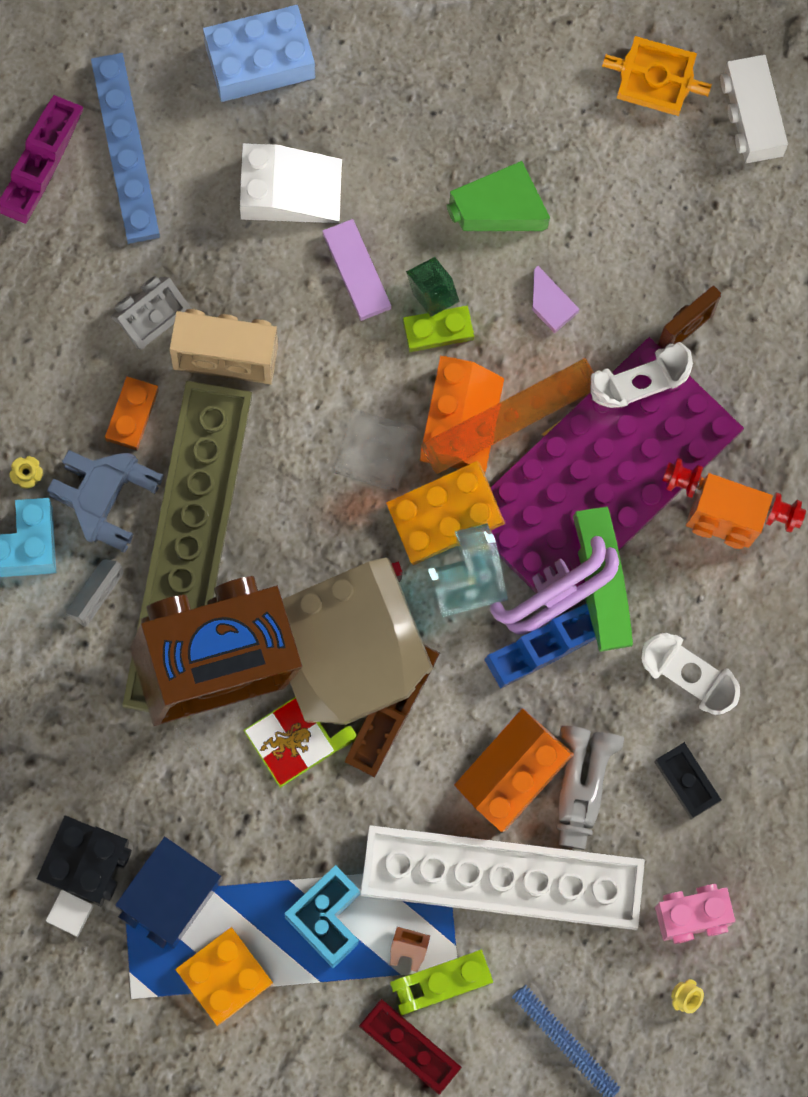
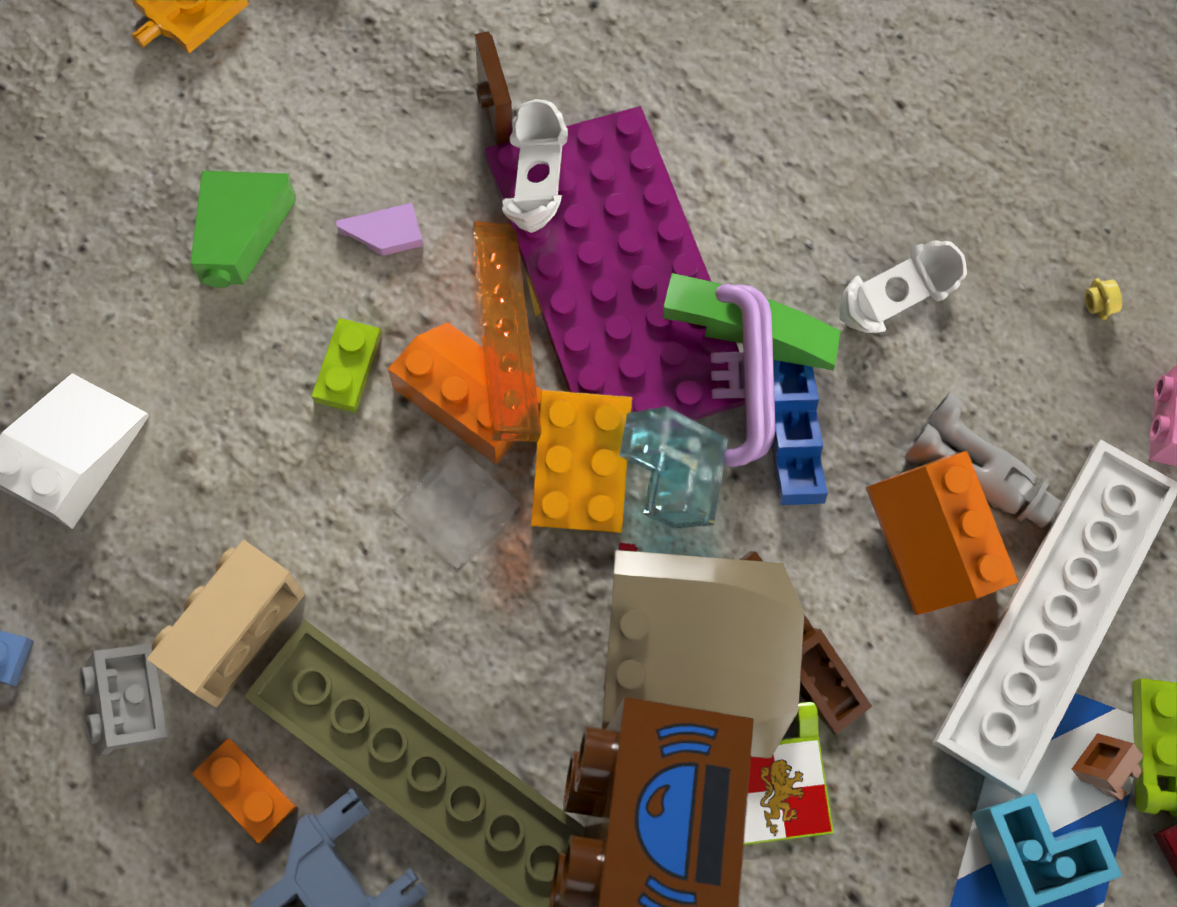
camera: 65 degrees left, 5 degrees down
(356, 269) = (219, 421): lavender tile -> none
(432, 286) = (294, 341): clear green brick -> none
(687, 780) = (1021, 352): black plate -> none
(729, 508) = (730, 155): orange brick -> none
(764, 825) = (1103, 298): none -> light yellow plate

